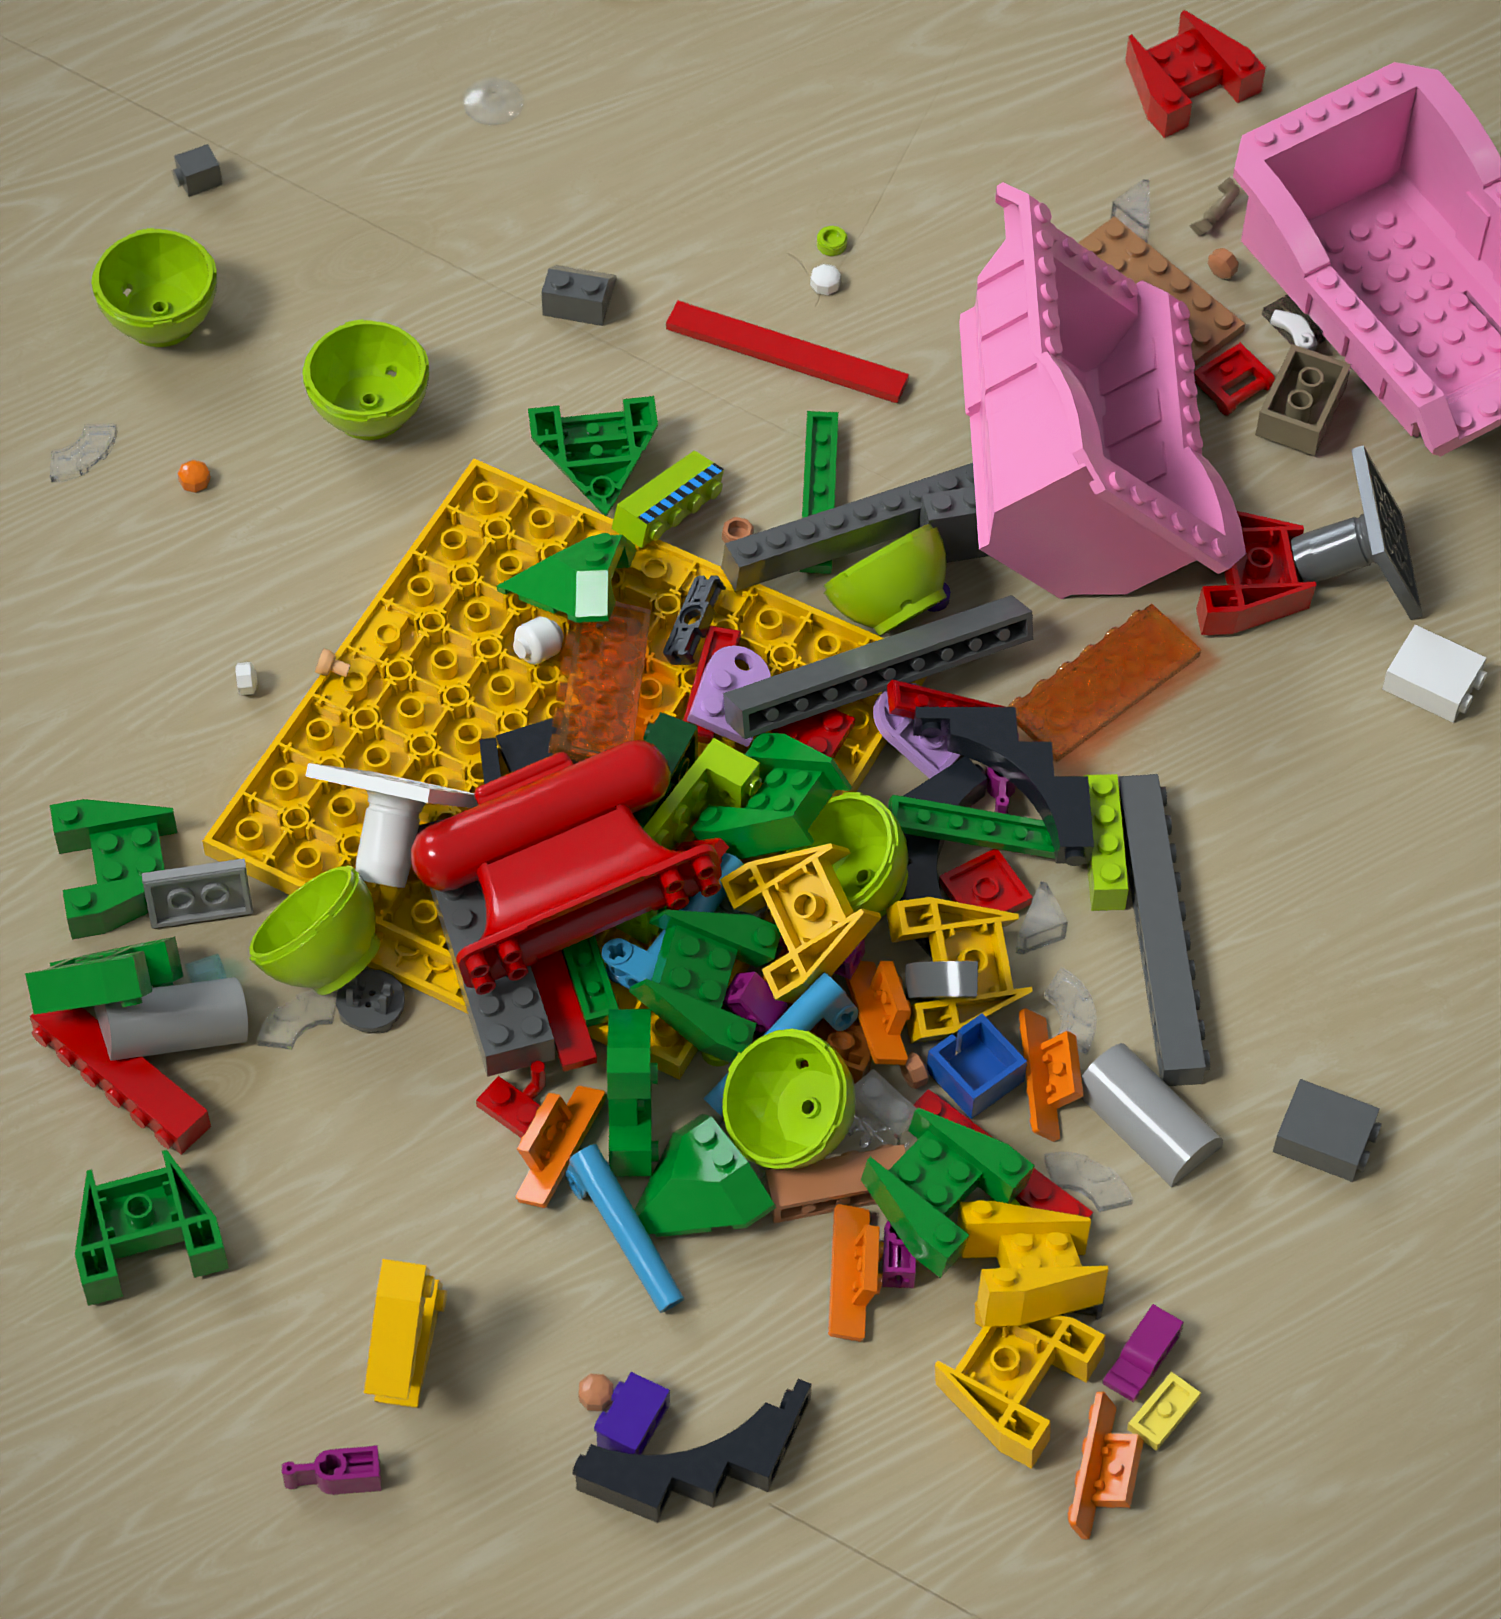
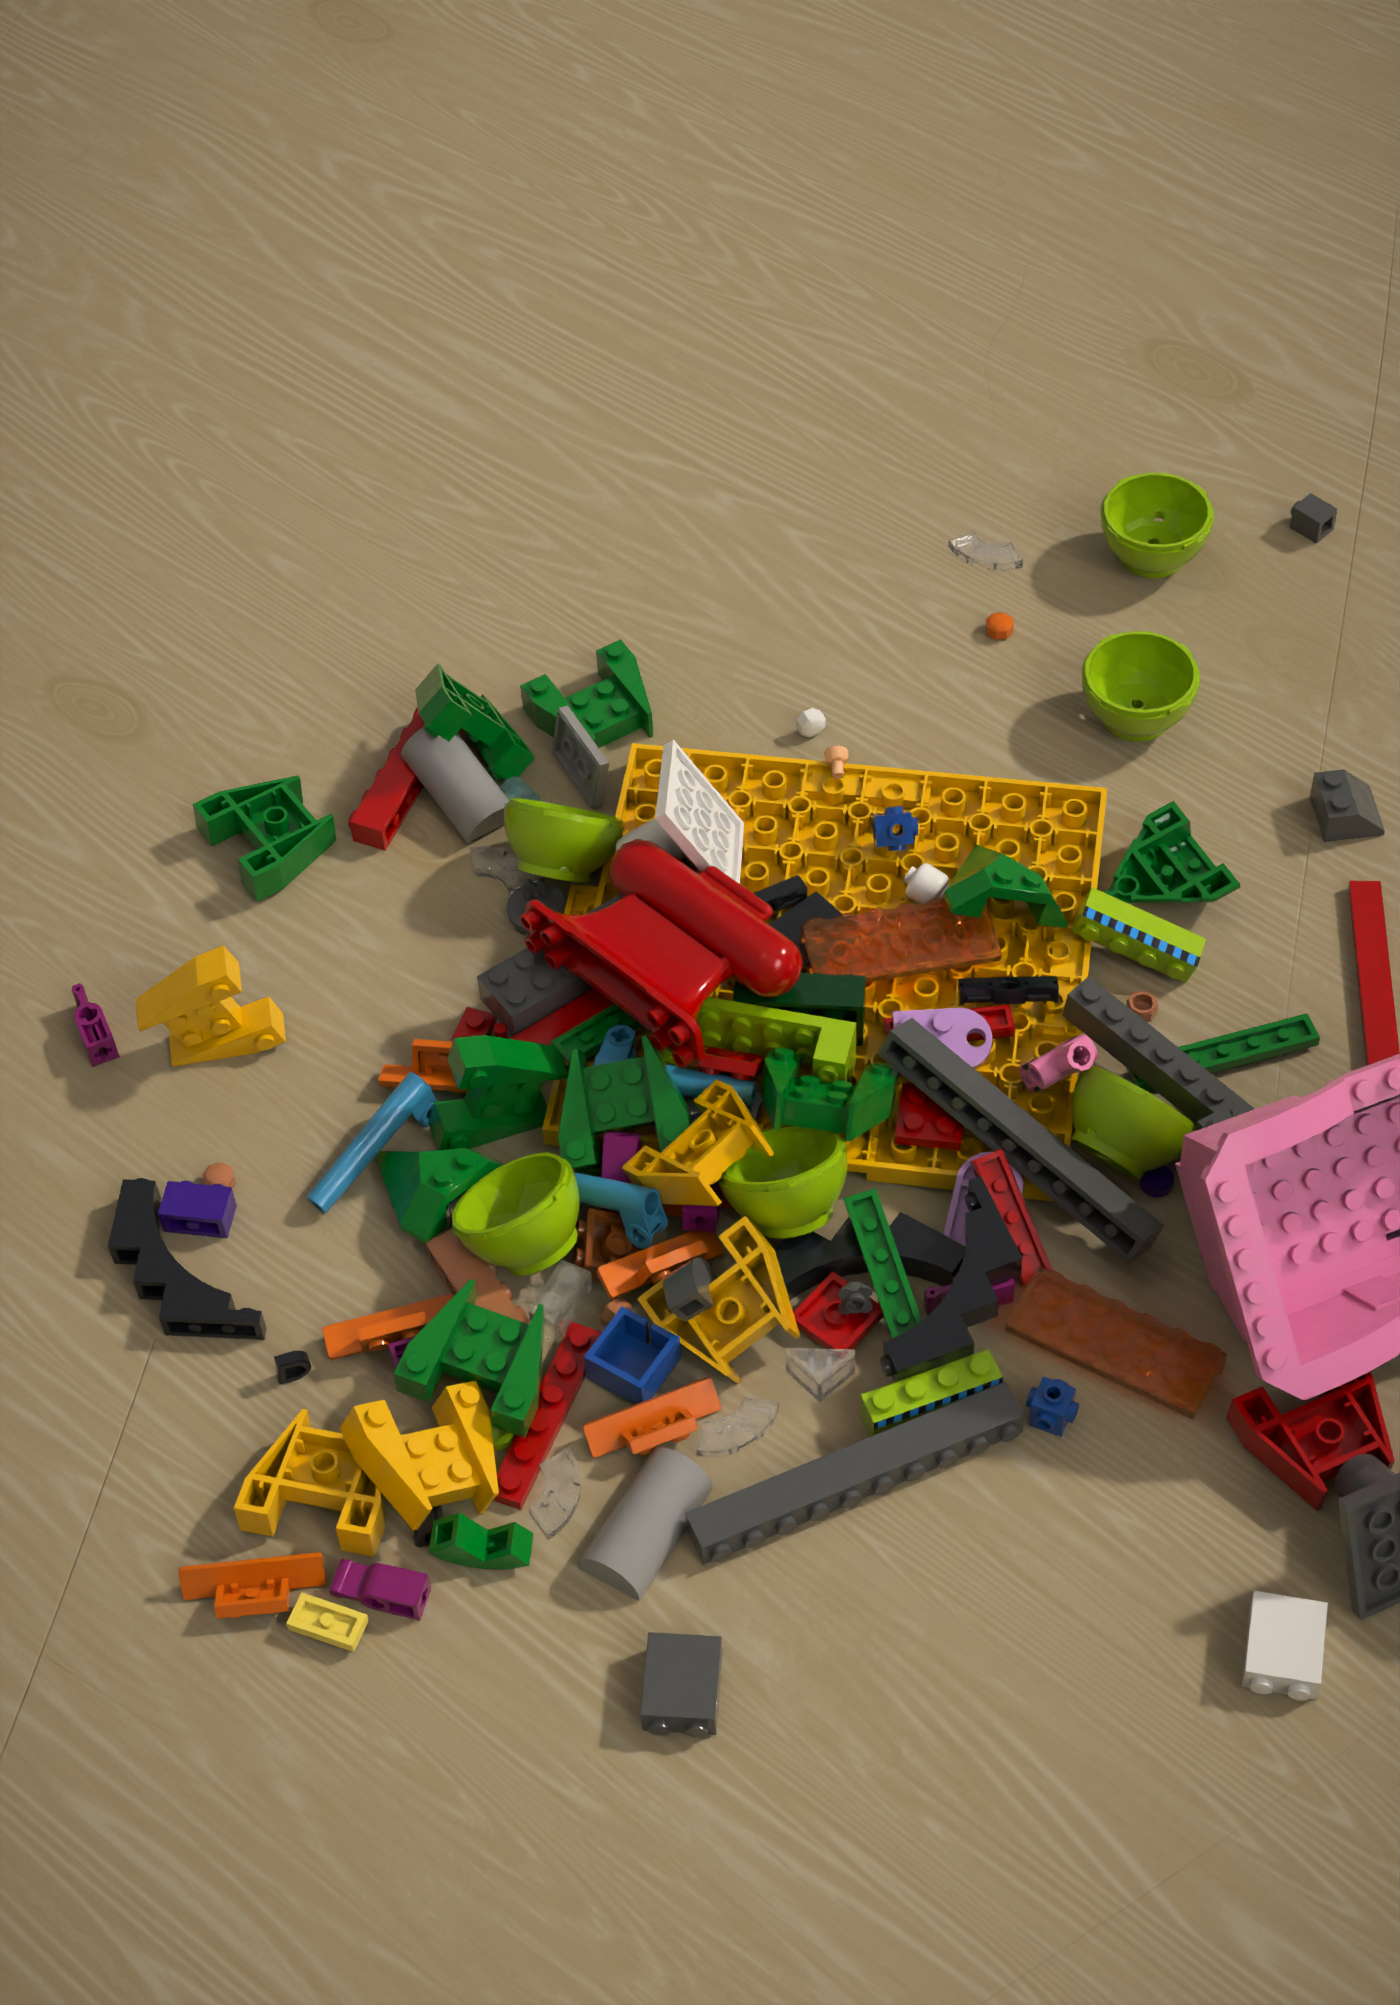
camera: 75 degrees right, 5 degrees down
(454, 642) = (883, 824): none -> blue brick
(813, 598) = (1066, 1059): none -> bright pink connector
(864, 1375) = (291, 1366): none -> black tile
(986, 862) = (855, 1298): none -> dark grey plate
(1130, 1252) = (471, 1545): none -> green brick
(1149, 752) = (1052, 1406): none -> blue brick

